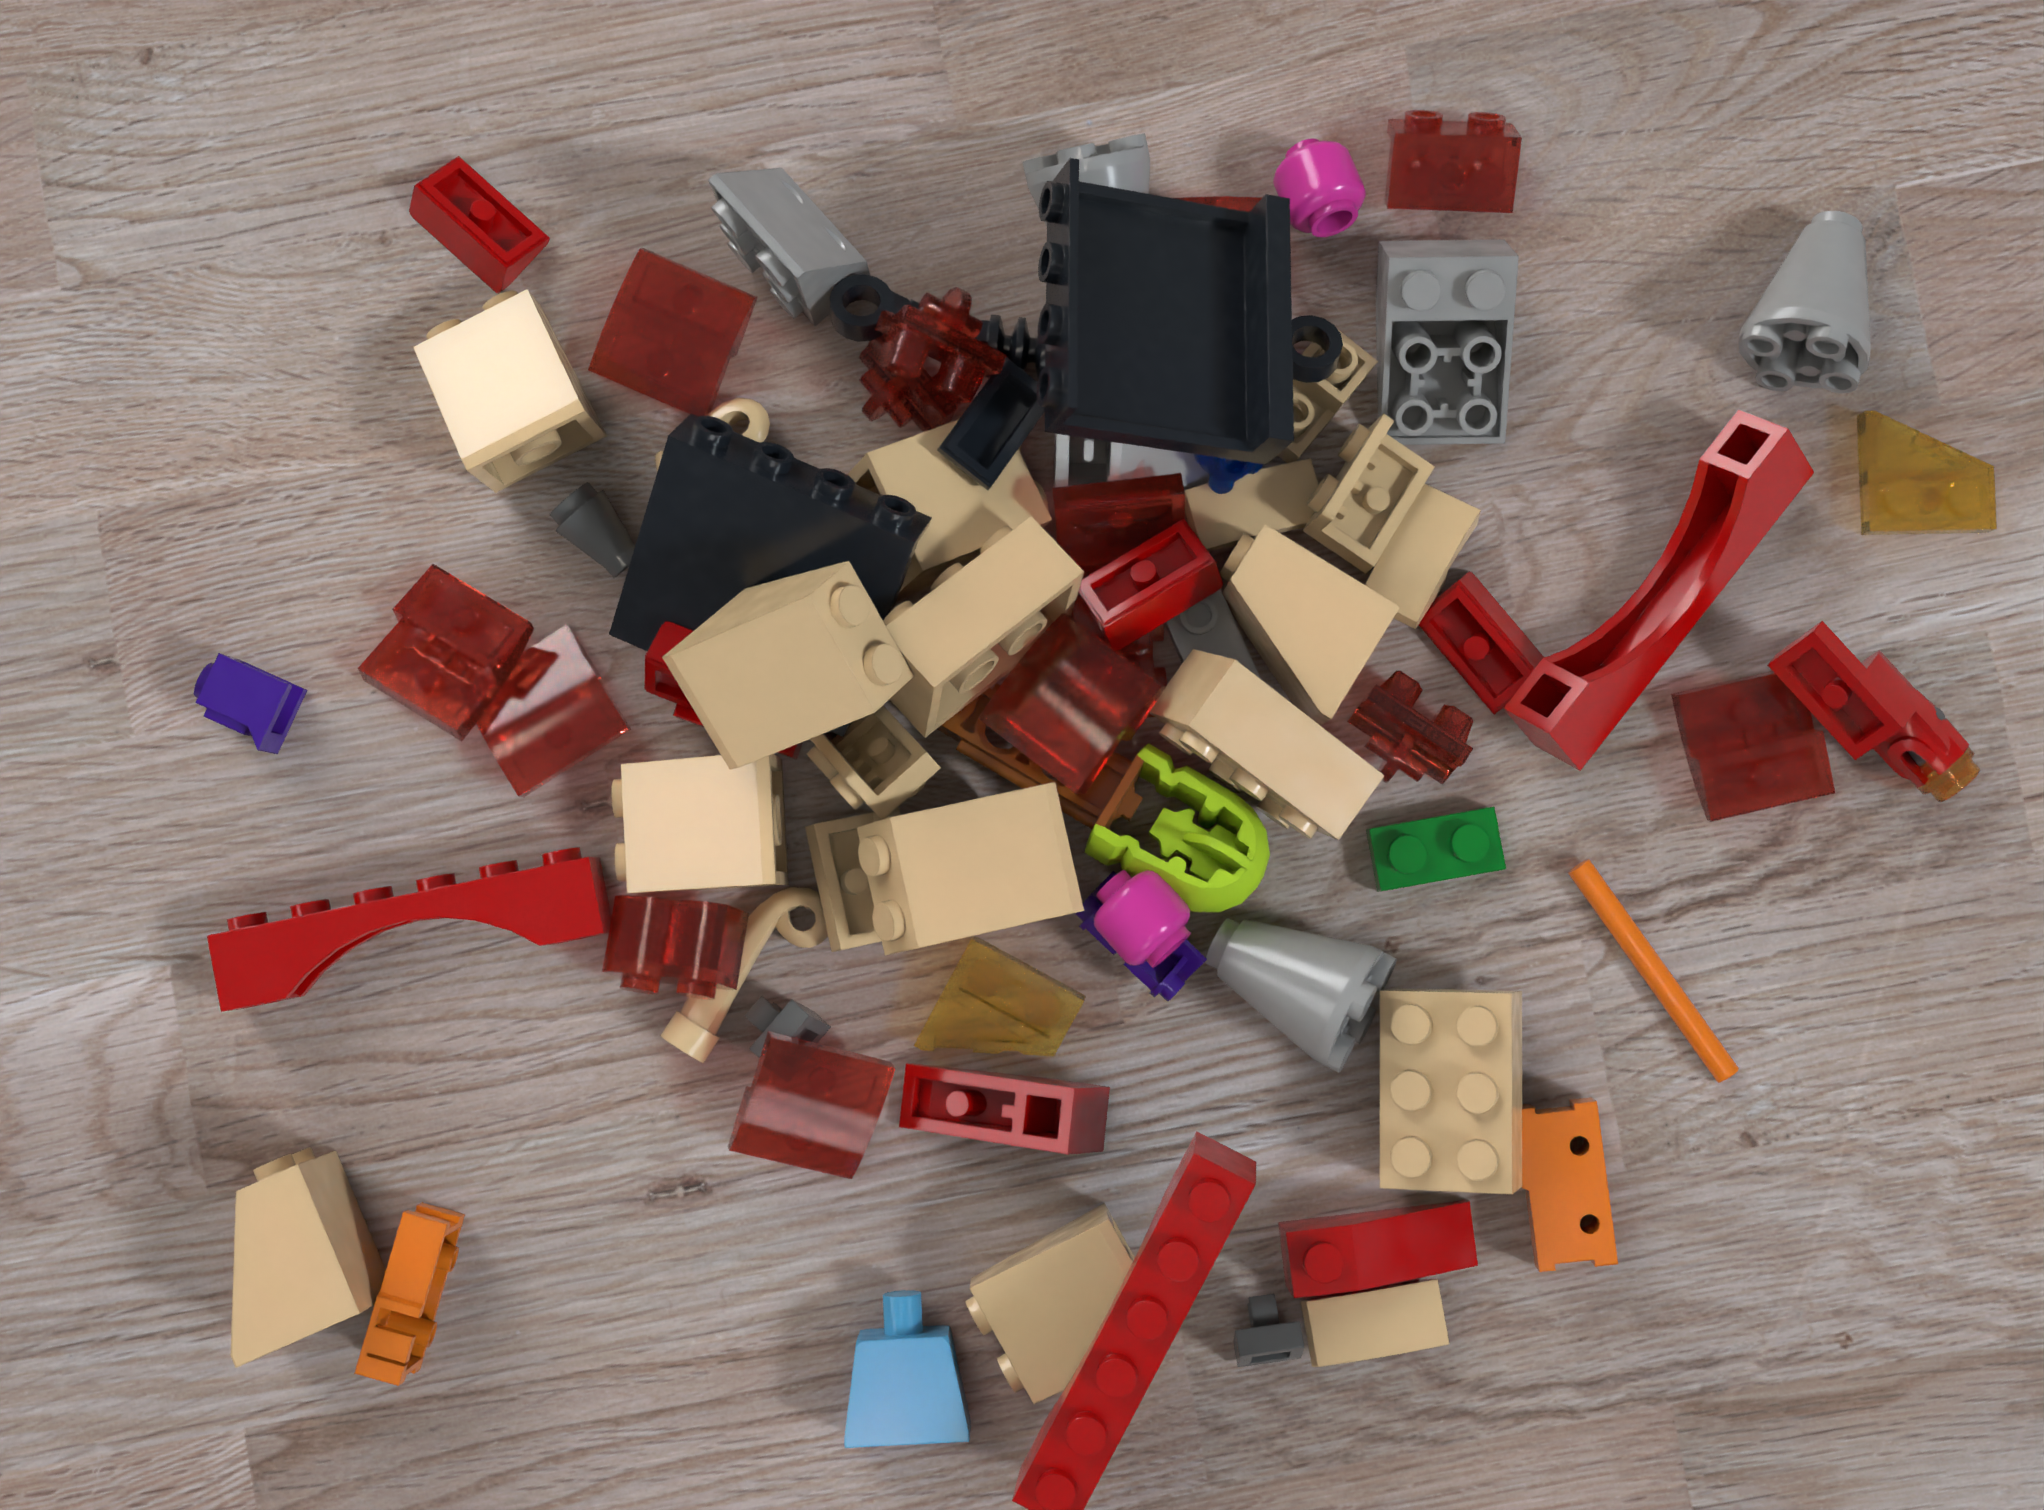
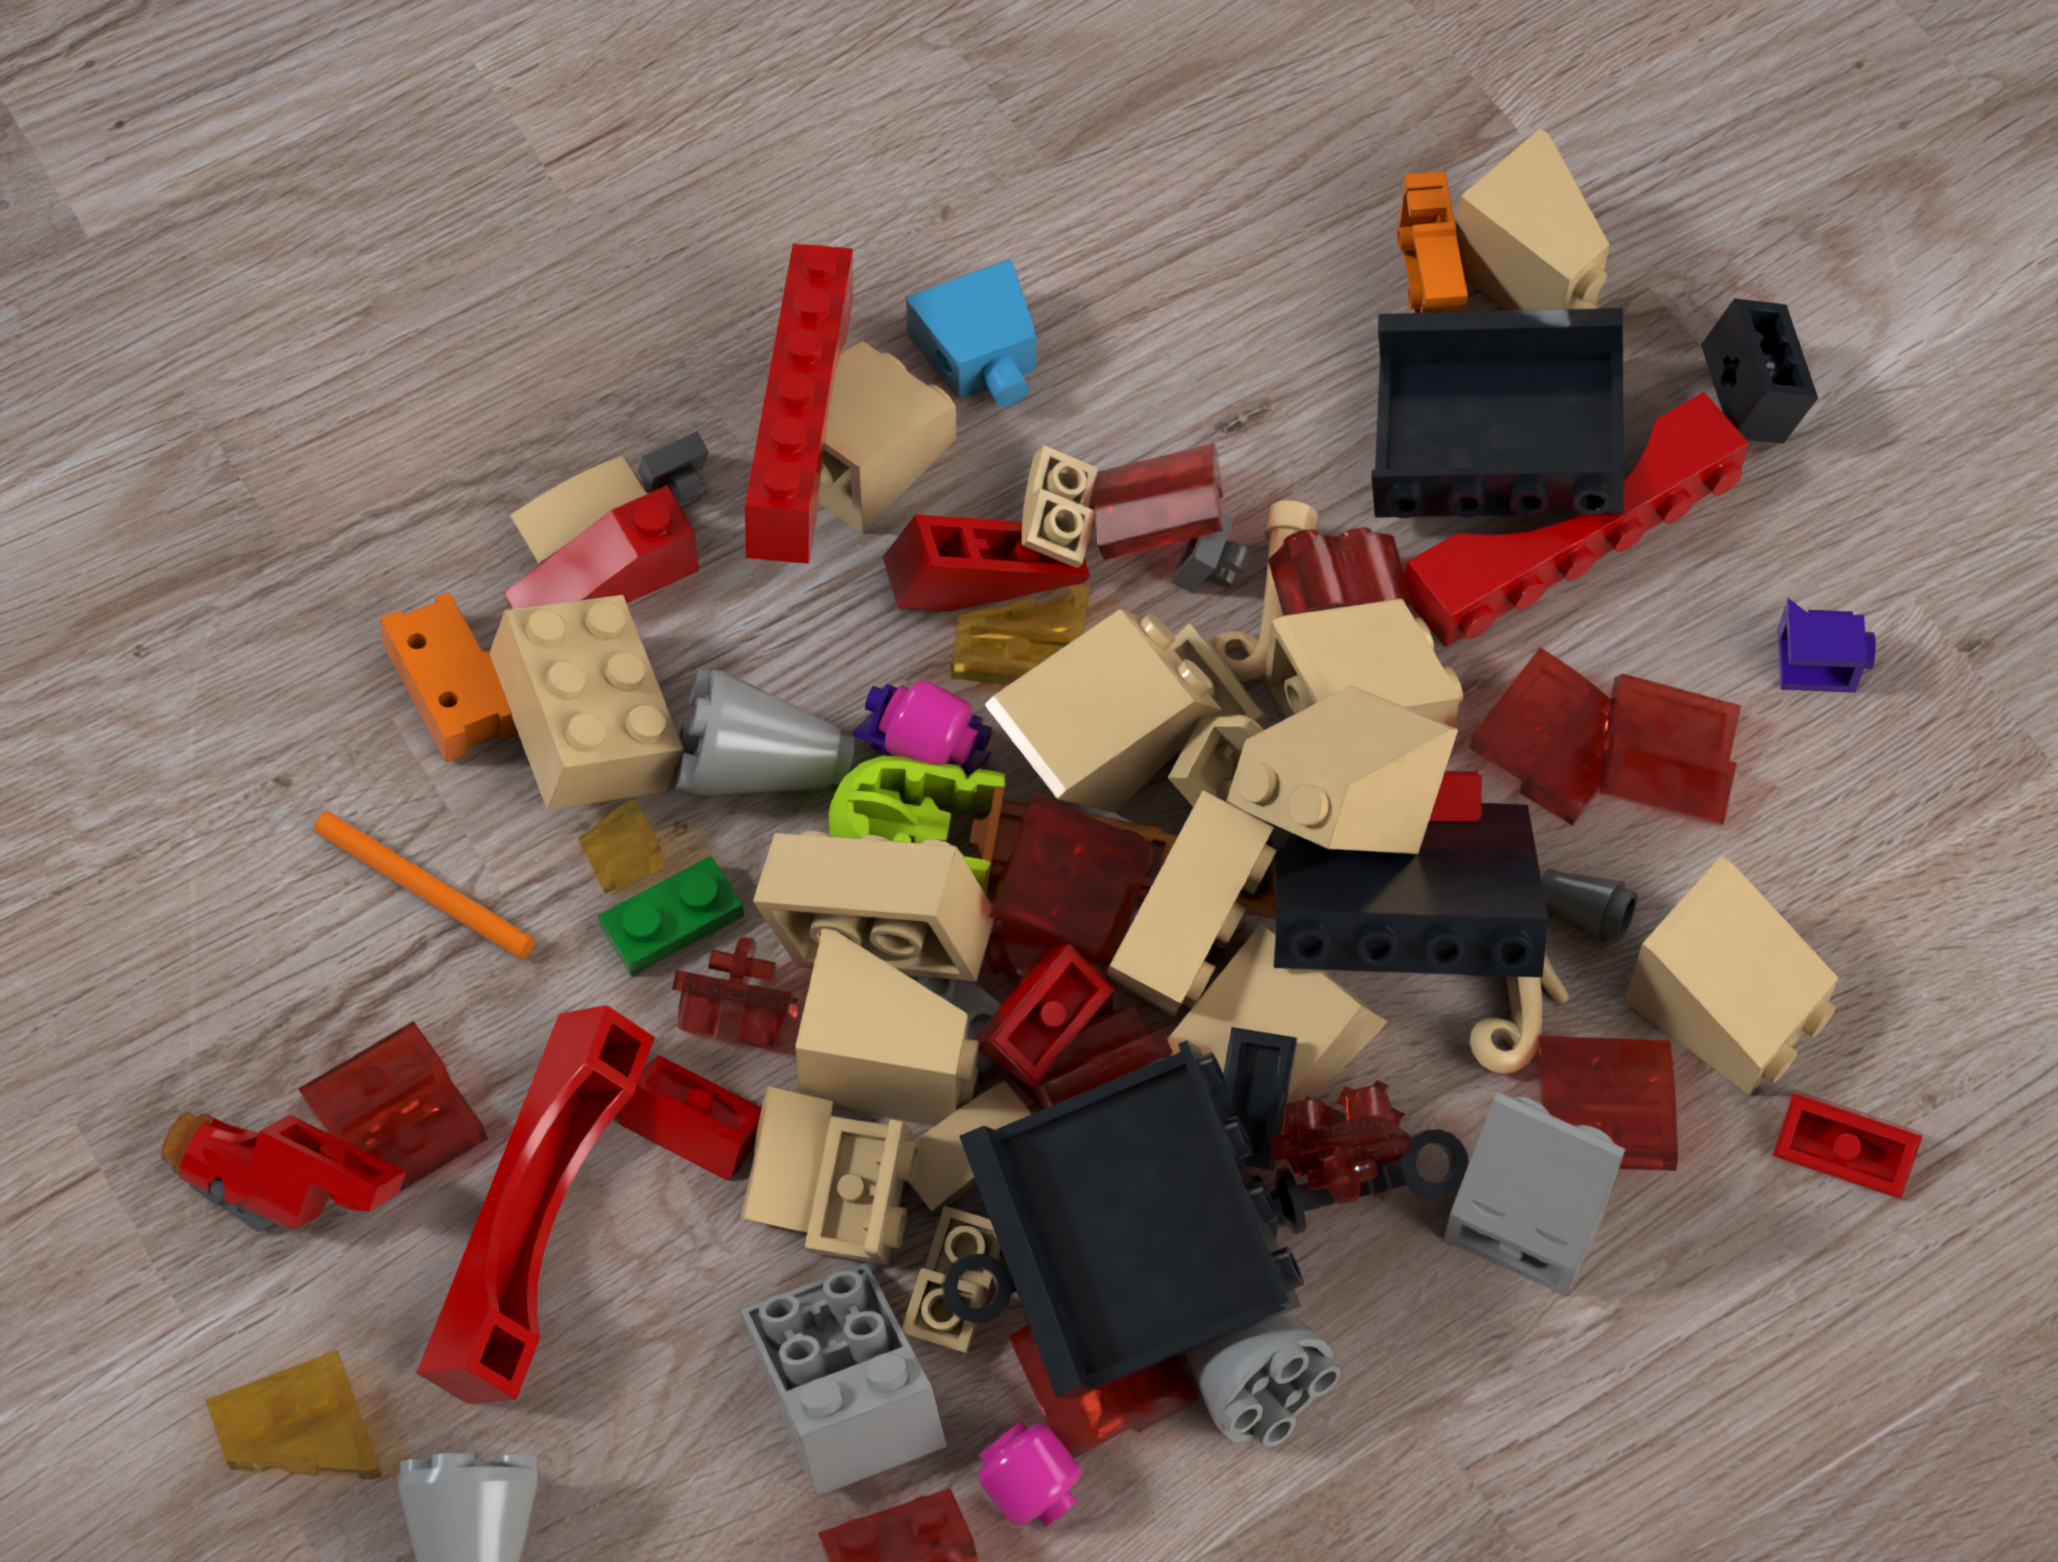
camera: 155 degrees right, 25 degrees down
(152, 1021) = (1759, 370): none -> black brick
(434, 1064) = (1500, 413): none -> black panel
(913, 1141) = (1057, 506): none -> tan slope
(1459, 935) = (622, 847): none -> clear yellow slope

